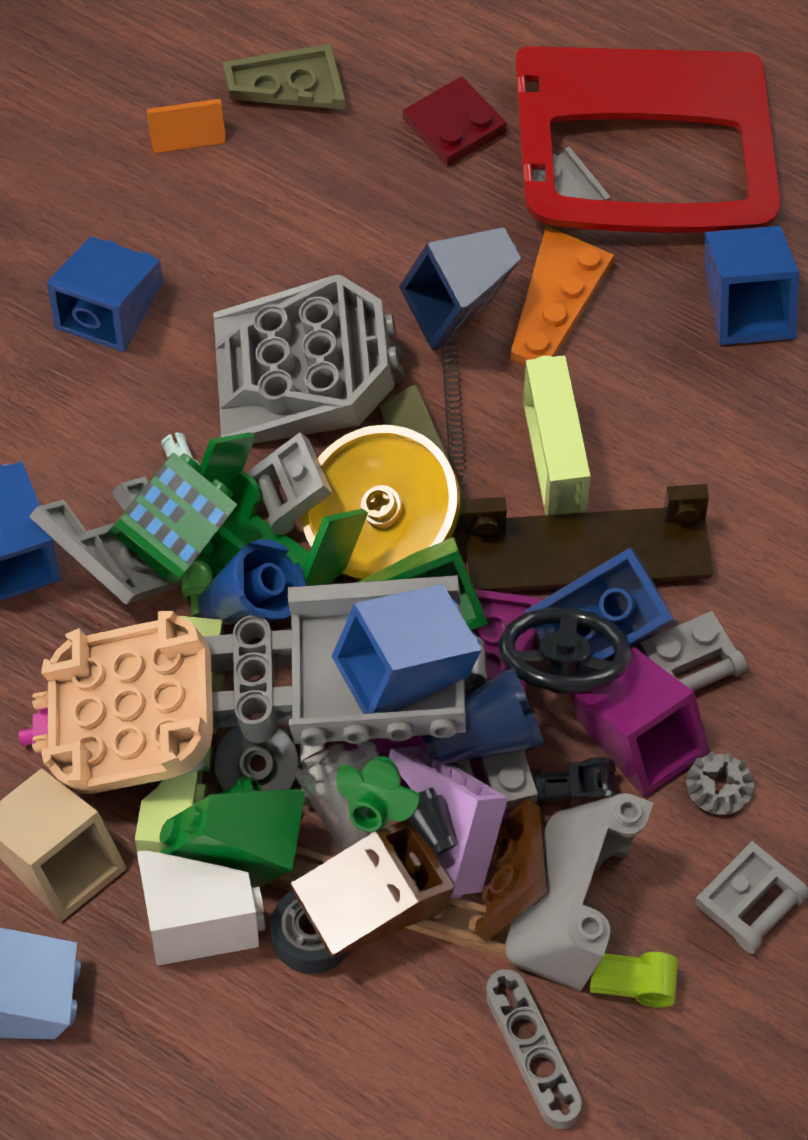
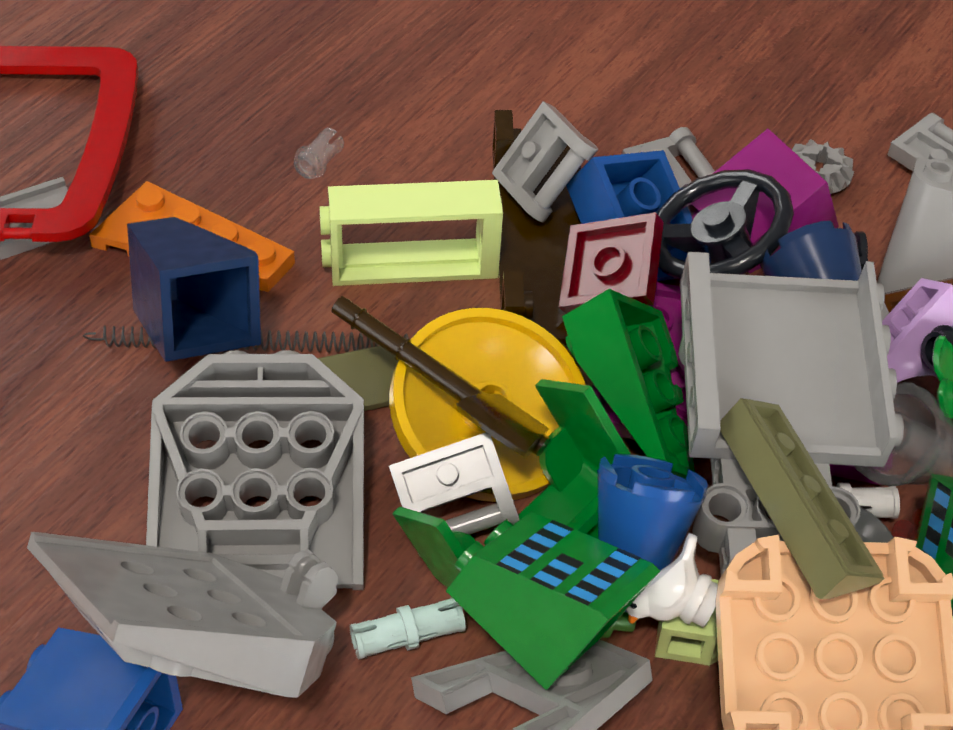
camera: 90 degrees left, 10 degrees down
(147, 312) = (199, 610): none -> light grey hinge
(192, 606) = (678, 592): none -> white animal
(242, 663) = (798, 500): none -> olive slope
(330, 487) = (486, 410): none -> dark brown piece
(404, 648) = (795, 312): slope -> none
(526, 579) = (614, 256): none -> plate
(644, 524) = (534, 155): none -> light grey plate
(666, 371) = (313, 159): none -> clear pin
(752, 284) = (215, 72): blue slope -> none

